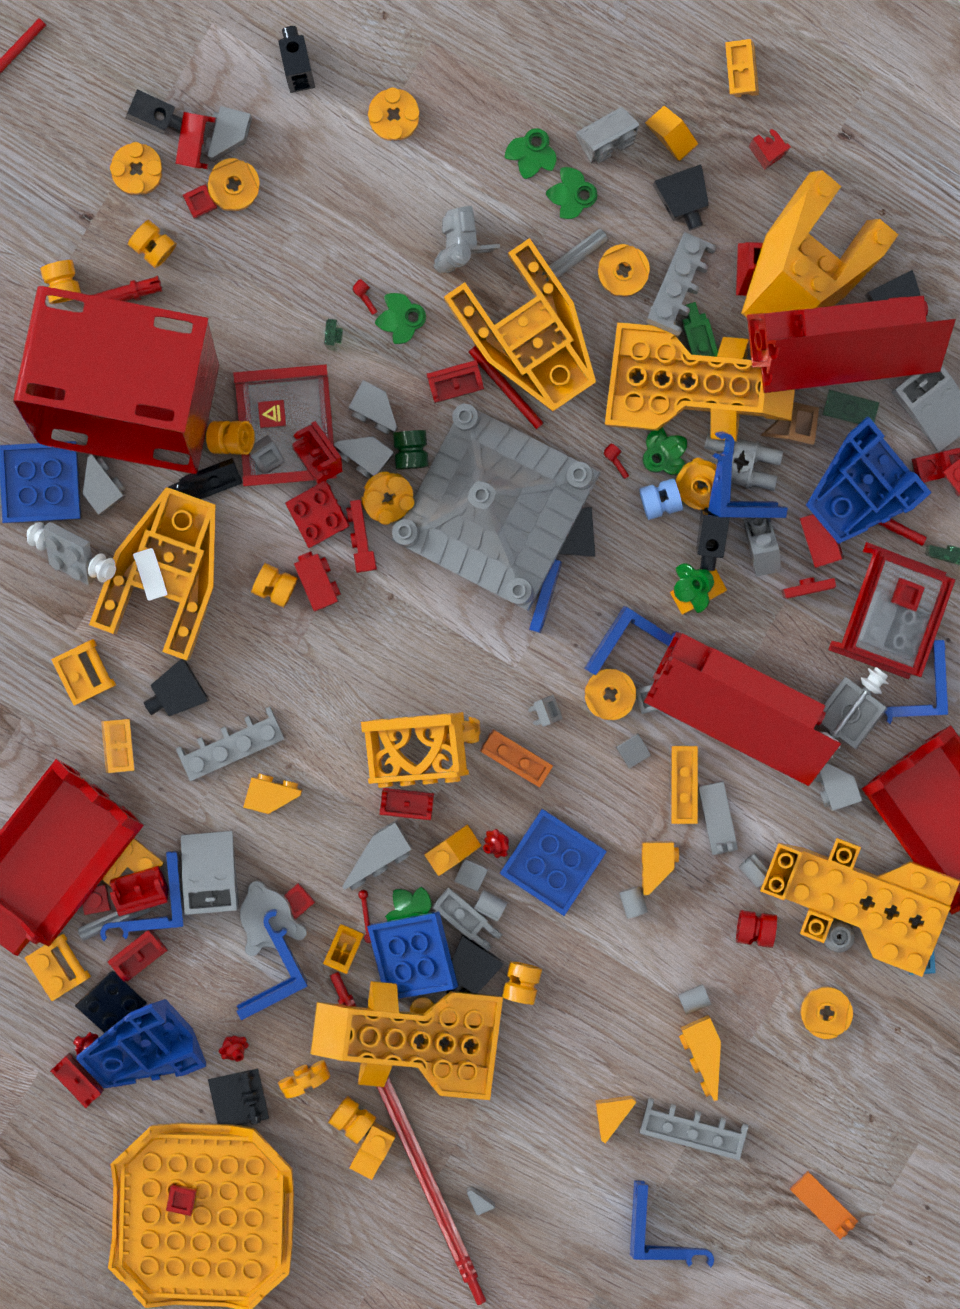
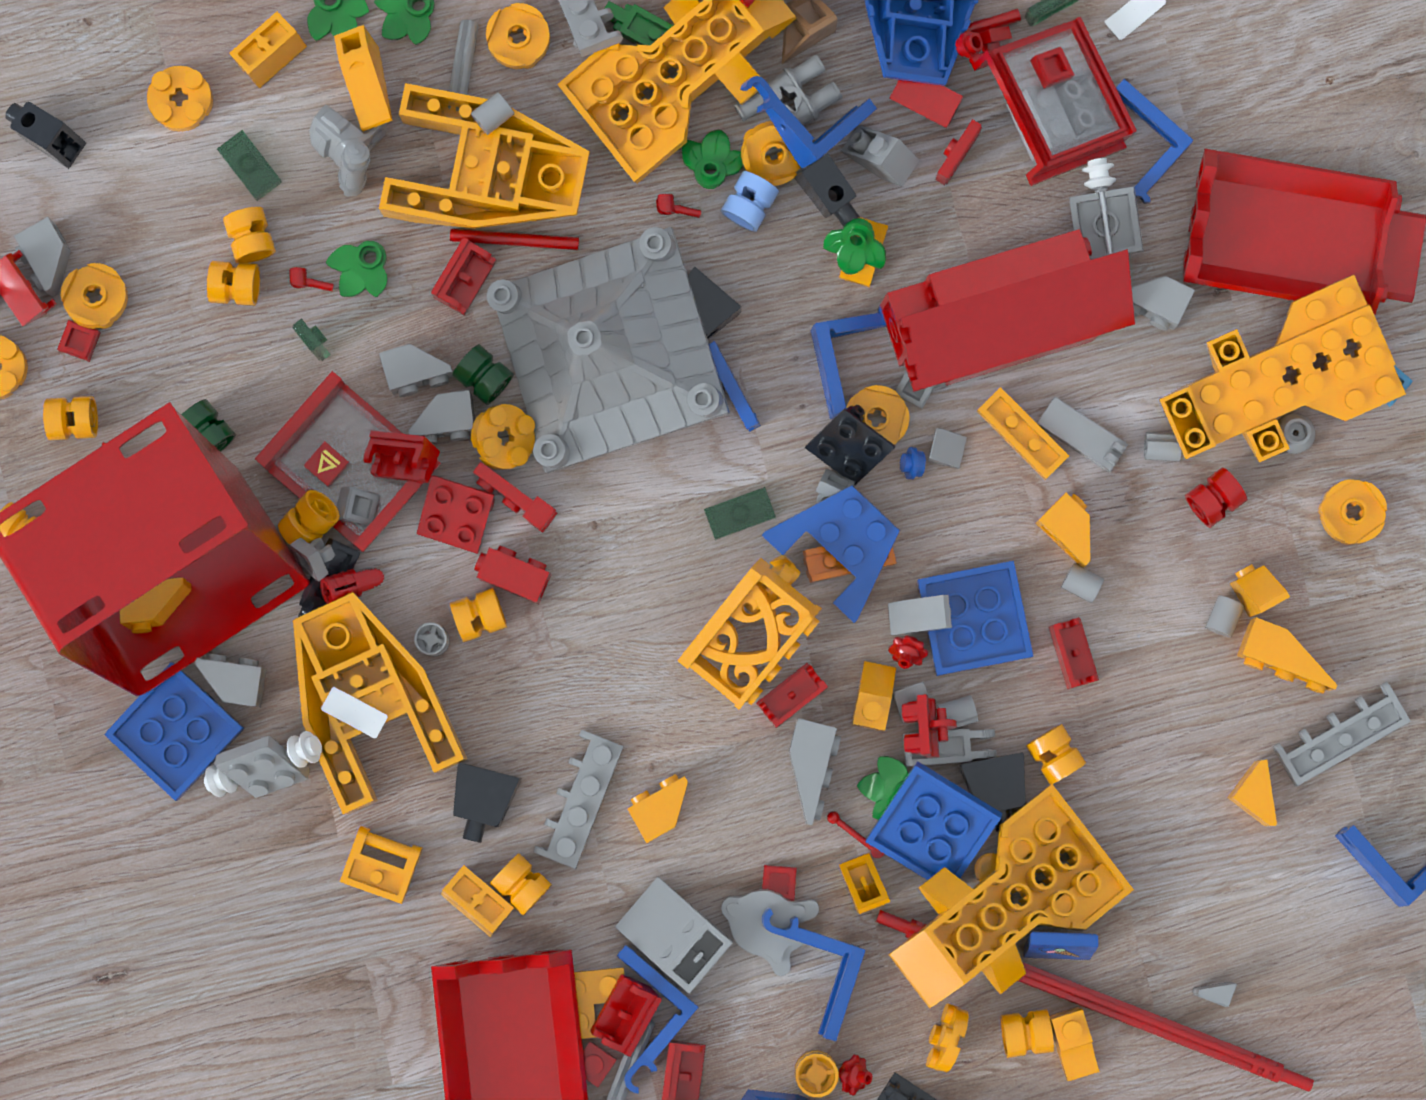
camera: 40 degrees left, 5 degrees down
(151, 760) = (520, 884): none -> light orange wheel
(212, 461) = (313, 556): none -> light grey tile
(213, 1026) = (816, 1073): none -> light orange wheel
(219, 496) = (356, 582): none -> red hinge
(222, 324) = (204, 419): none -> dark green wheel
(231, 572) = (430, 635): none -> light grey wheel
(325, 263) = (244, 280): none -> light orange wheel
(355, 237) = (249, 235): none -> light orange wheel
(395, 194) = (249, 165): none -> clear green plate
(418, 1091) = (1061, 945): none -> blue tile
(467, 899) = (932, 726): none -> red hips
(471, 137) = (268, 49): none -> light orange hinge
(479, 672) = (740, 513): none -> clear green plate
(510, 210) = (364, 76): none -> light orange slope
(522, 830) = (920, 615): none -> light grey slope
(529, 743) = (849, 531): none -> blue wing
(561, 306) = (492, 113): none -> light grey piece
(579, 695) = (850, 445): none -> black hinge
(589, 936) = (1073, 653): none -> red hinge
(605, 740) = (913, 463): none -> blue plate
(727, 1003) = (1258, 589): none -> light orange slope
(877, 534) = (970, 43): none -> red plate

